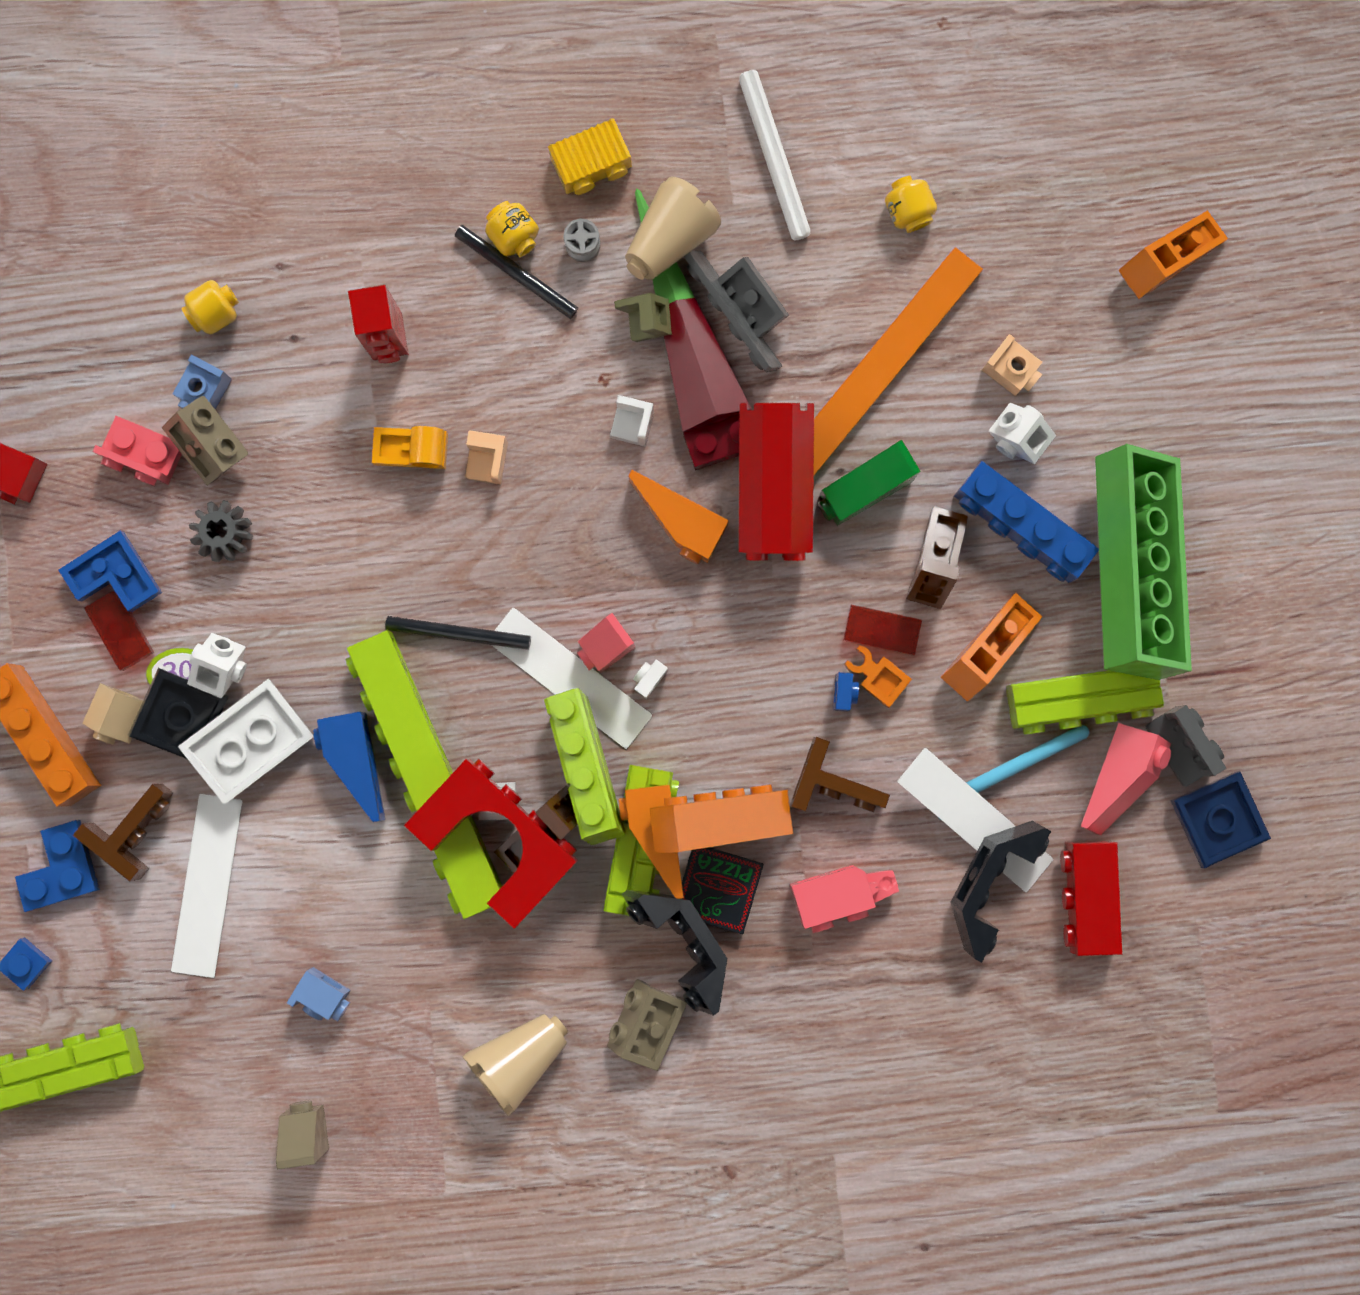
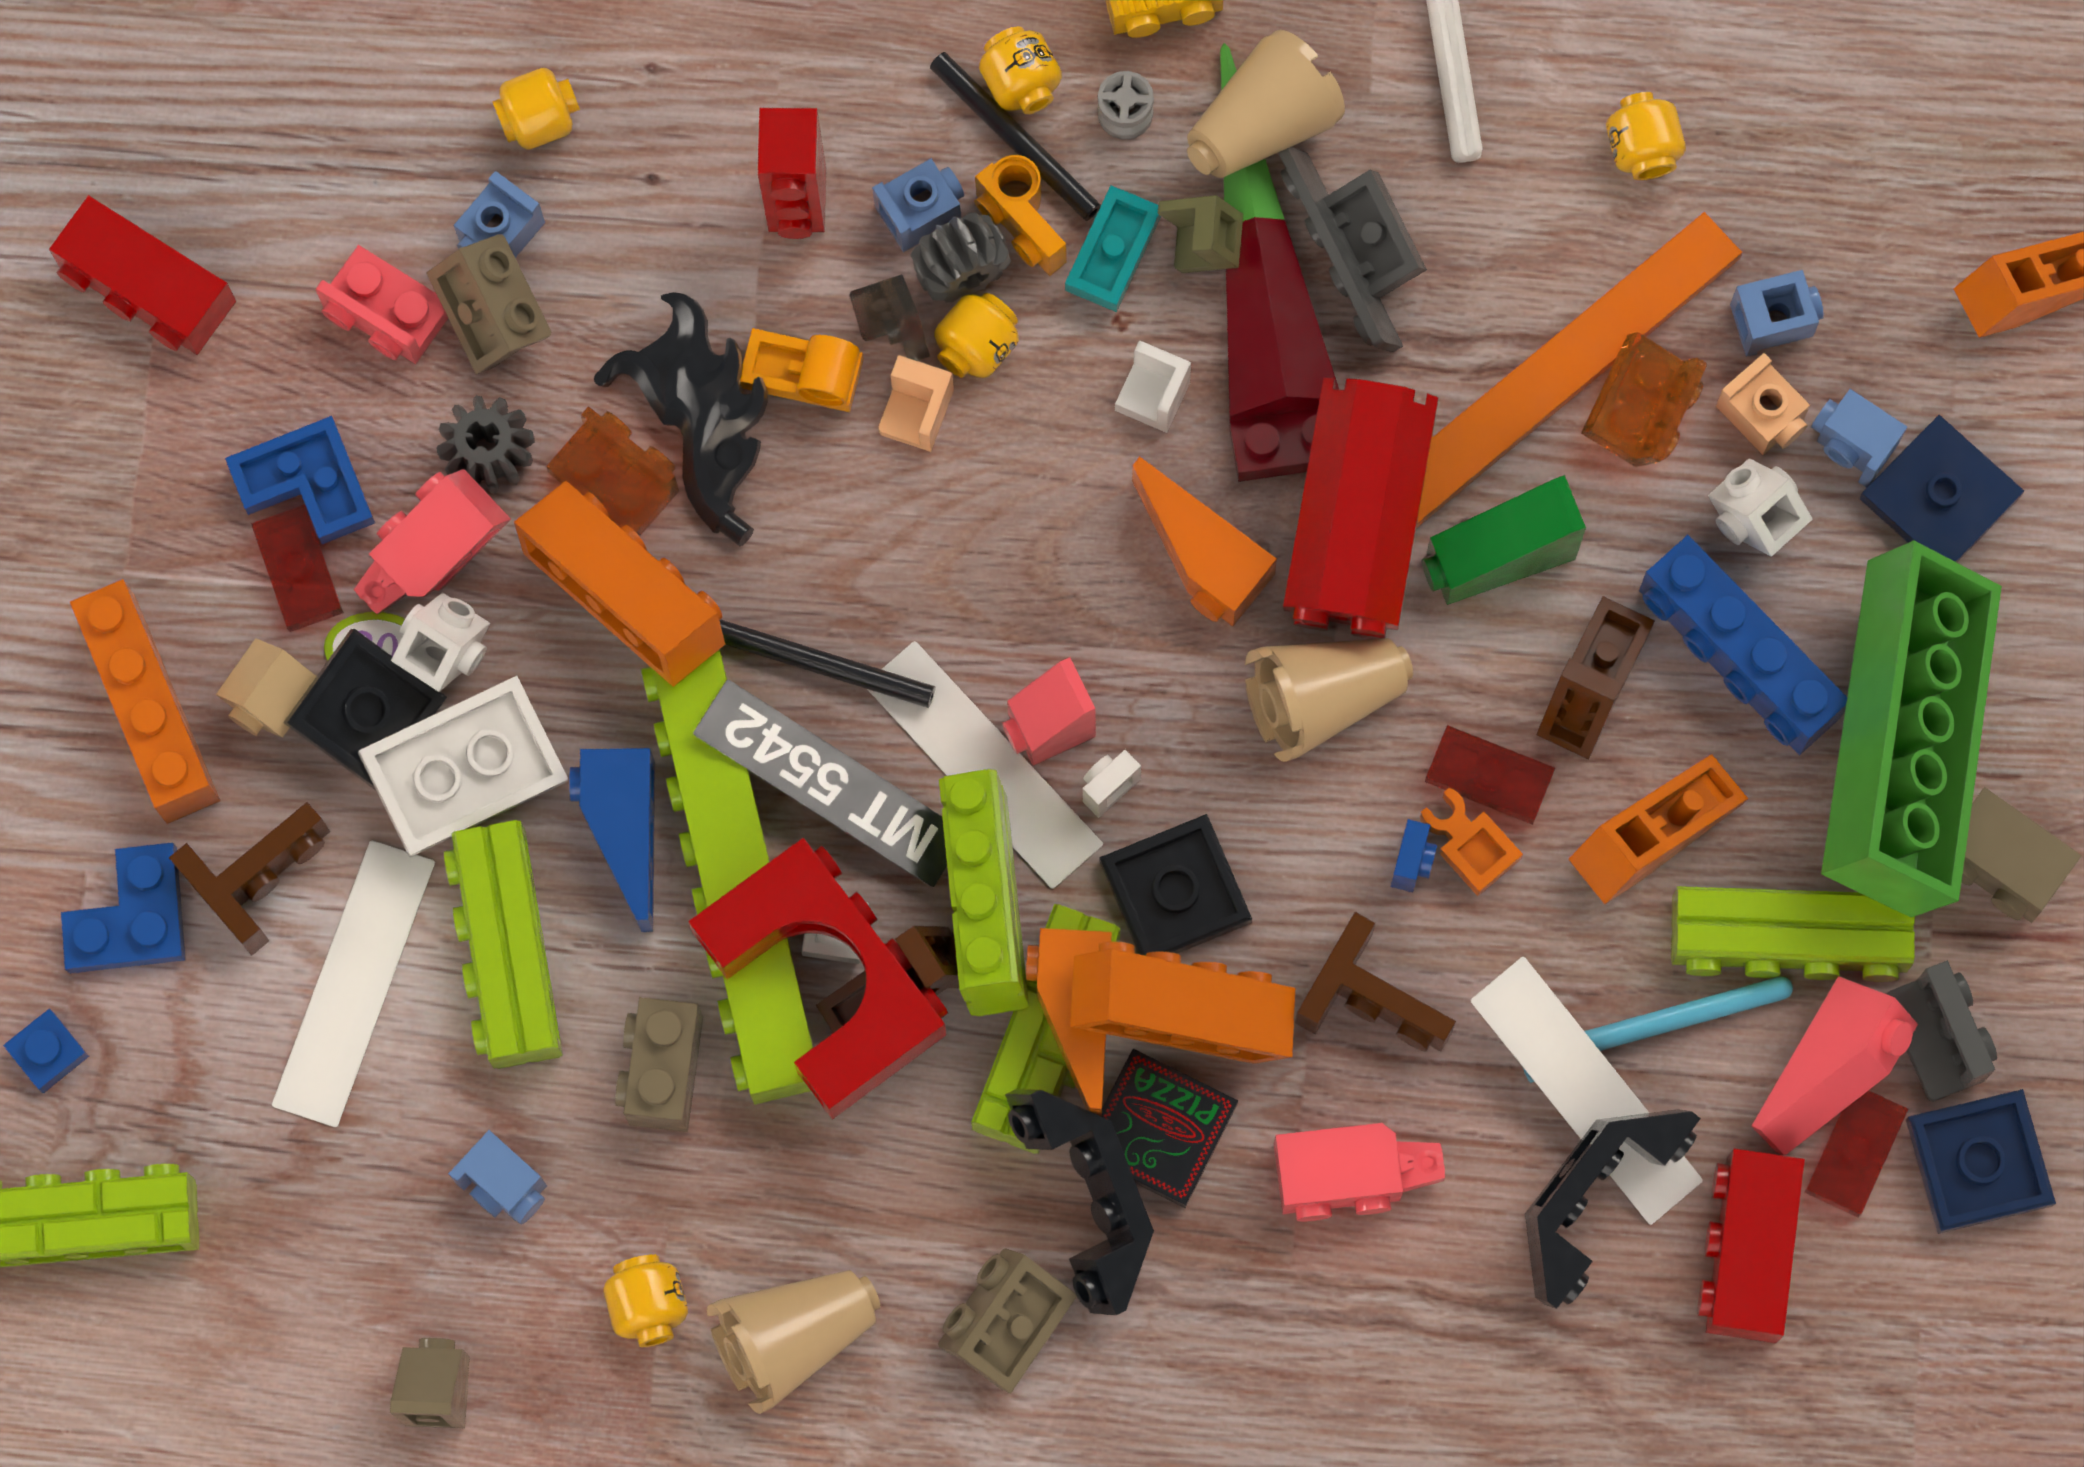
camera: 15 degrees right, 10 degrees down
(199, 600) = (432, 541): none -> coral hinge
(294, 848) = (505, 945): none -> lime brick
(305, 536) = (618, 472): none -> clear orange bracket
(322, 609) = (621, 582): none -> orange brick
(352, 478) = (706, 401): none -> black piece
(405, 907) = (662, 1064): none -> dark tan brick
(424, 1054) = (645, 1300): none -> yellow head
(457, 400) = (890, 311): none -> clear smoke bracket
(464, 339) = (912, 219): none -> medium blue brick
(472, 710) = (826, 781): none -> sticker
(496, 359) = (960, 257): none -> dark grey gear
(515, 406) = (976, 335): none -> yellow head
(540, 337) = (1033, 236): none -> light orange plate
(591, 335) = (1113, 248): none -> teal plate
(702, 737) = (1176, 888): none -> black tile
(771, 597) = (1322, 688): none -> tan cone
(939, 376) = (1644, 401): none -> clear orange bracket
(1019, 292) = (1782, 293): none -> medium blue brick
(1074, 375) = (1858, 434): none -> medium blue brick
(1130, 402) = (1942, 492): none -> dark blue plate
(1144, 827) = (1856, 1152): none -> clear red plate
(1217, 630) = (2014, 858): none -> dark tan brick

